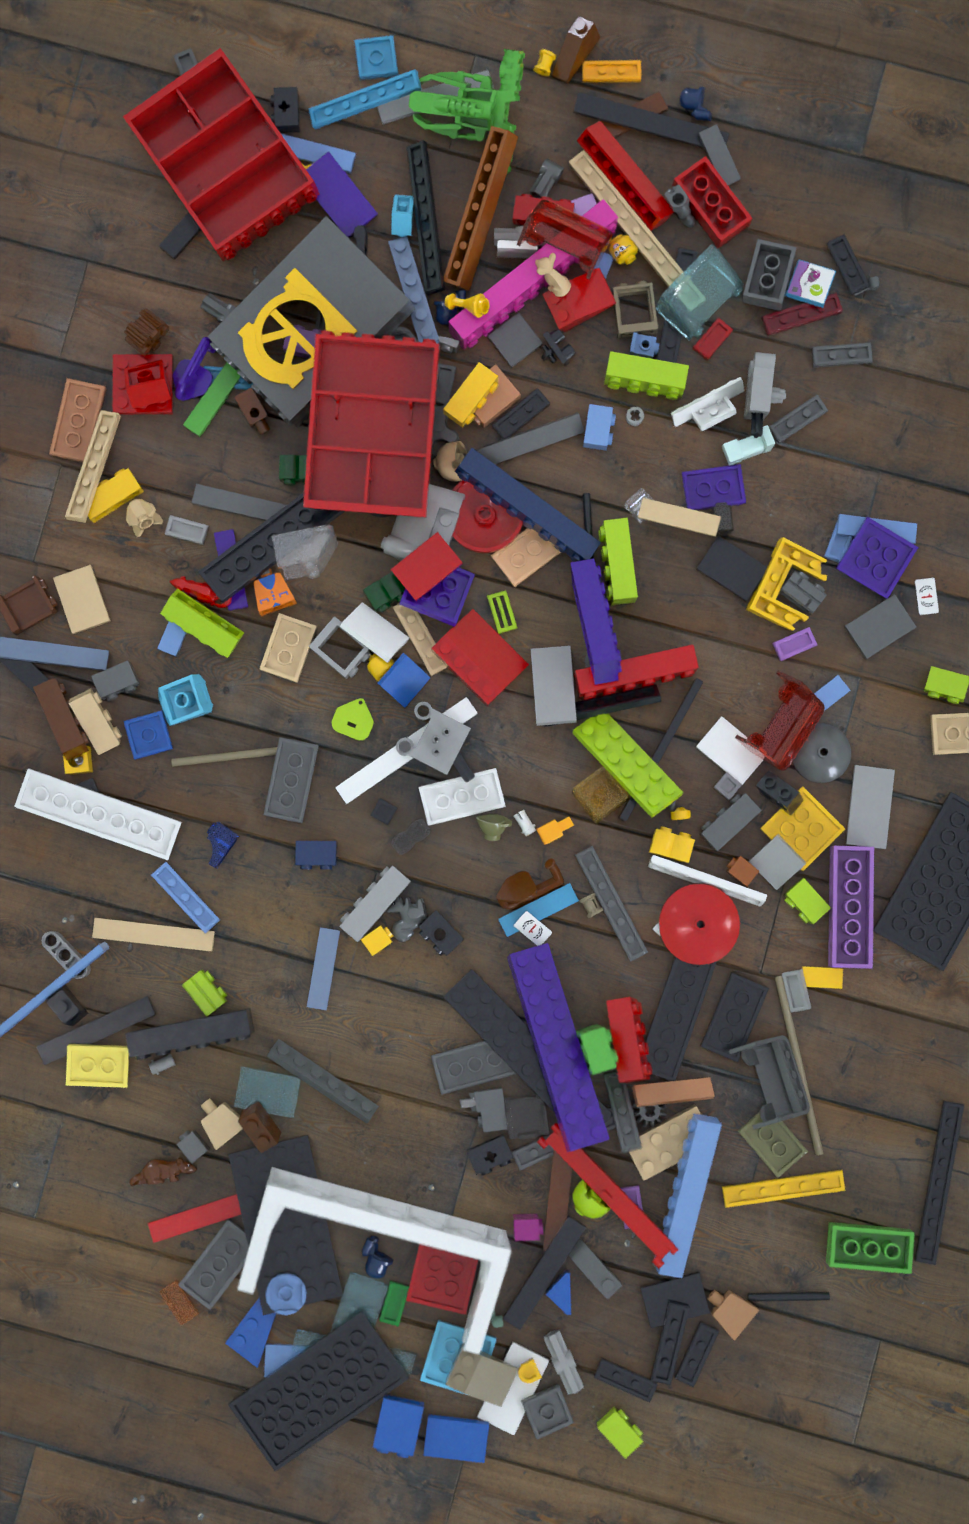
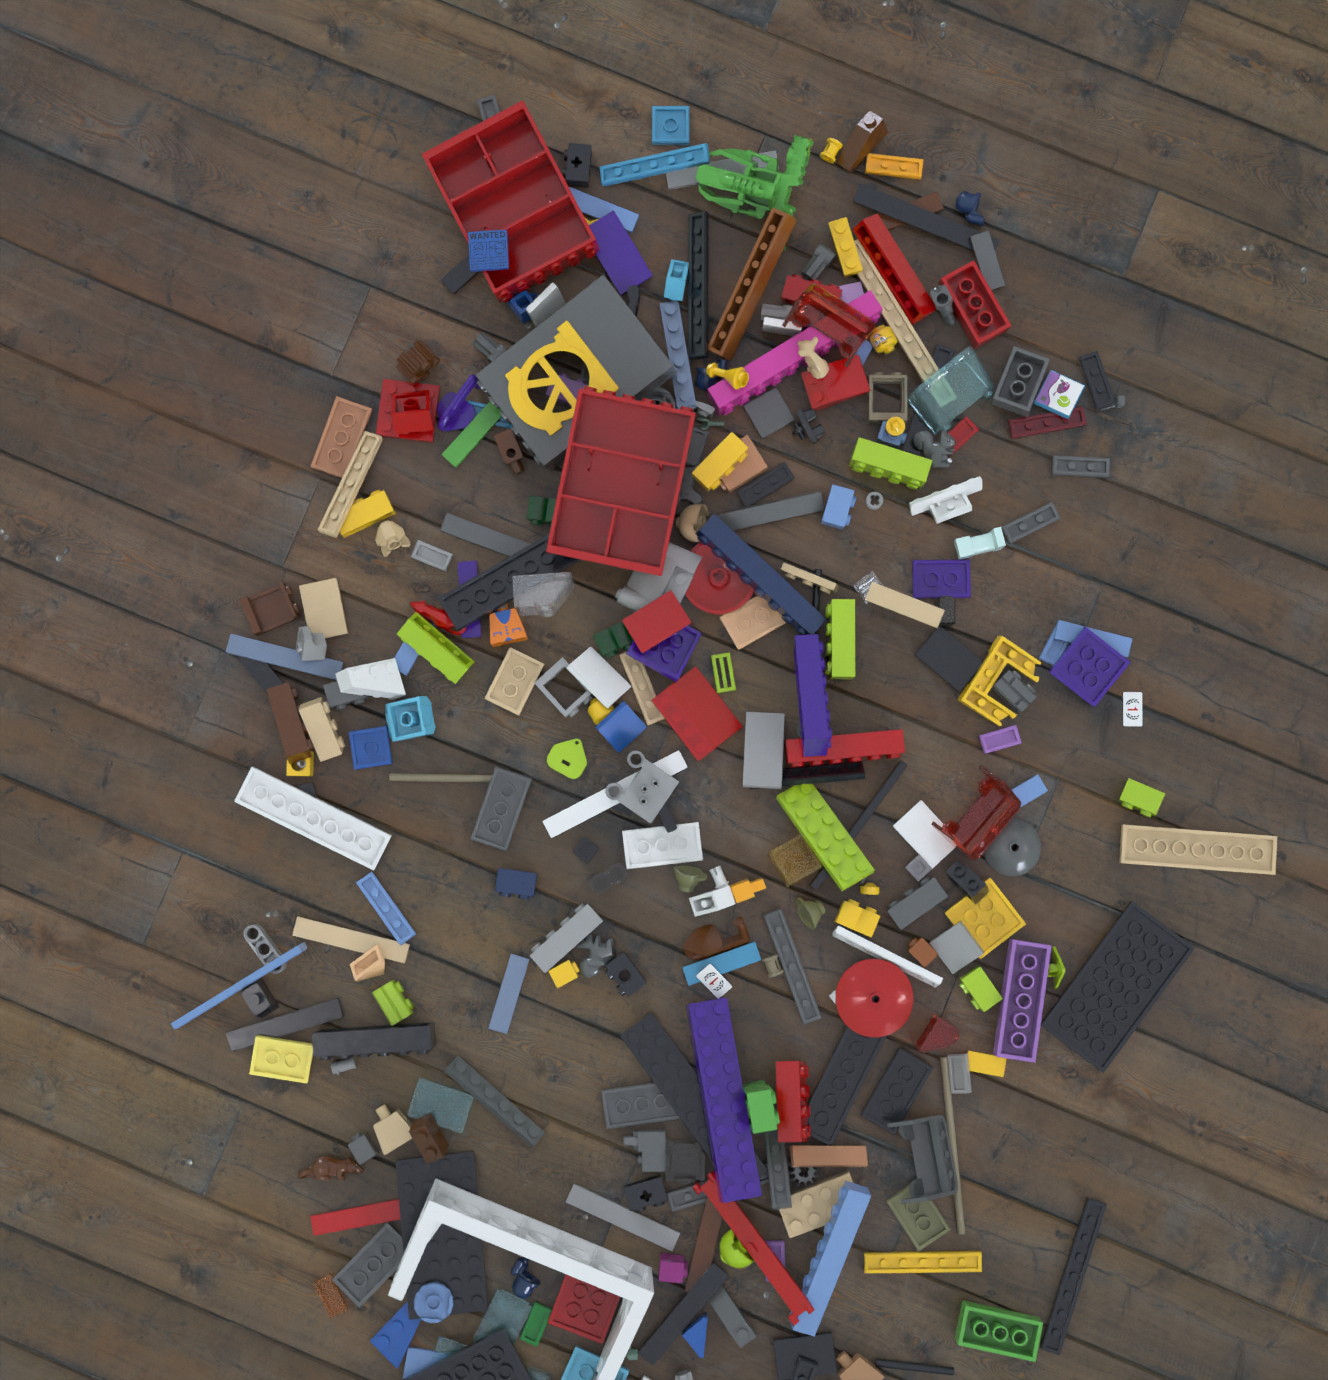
camera: 10 degrees right, 0 degrees up
(73, 636) = (310, 645): none -> light grey brick
(143, 662) = (372, 679): none -> white wedge
(175, 957) = (369, 964): none -> light nougat slope
(204, 206) = (488, 250): none -> blue tile
(222, 841) = (428, 858): clear blue arch -> none
(251, 261) = (520, 303): none -> blue brick
(270, 255) = (545, 304): none -> white tile
(452, 358) = (706, 423): none -> sand green hand
(470, 1182) = (623, 1217): none -> light grey tile
(520, 846) = (712, 901): none -> white brick
(572, 159) = (845, 247): none -> yellow plate
(578, 504) = (809, 578): none -> tan plate
(622, 845) = (809, 912): none -> olive piece
(646, 336) = (895, 426): none -> yellow tile
(691, 356) = (935, 450): none -> dark grey animal
(760, 391) = (998, 493): light grey piece -> none
(769, 953) = (937, 1035): none -> clear red slope
(870, 807) = (1052, 905): light grey tile -> none
(880, 626) = (1084, 733): dark grey tile -> none
(882, 870) = (1056, 969): none -> lime piece

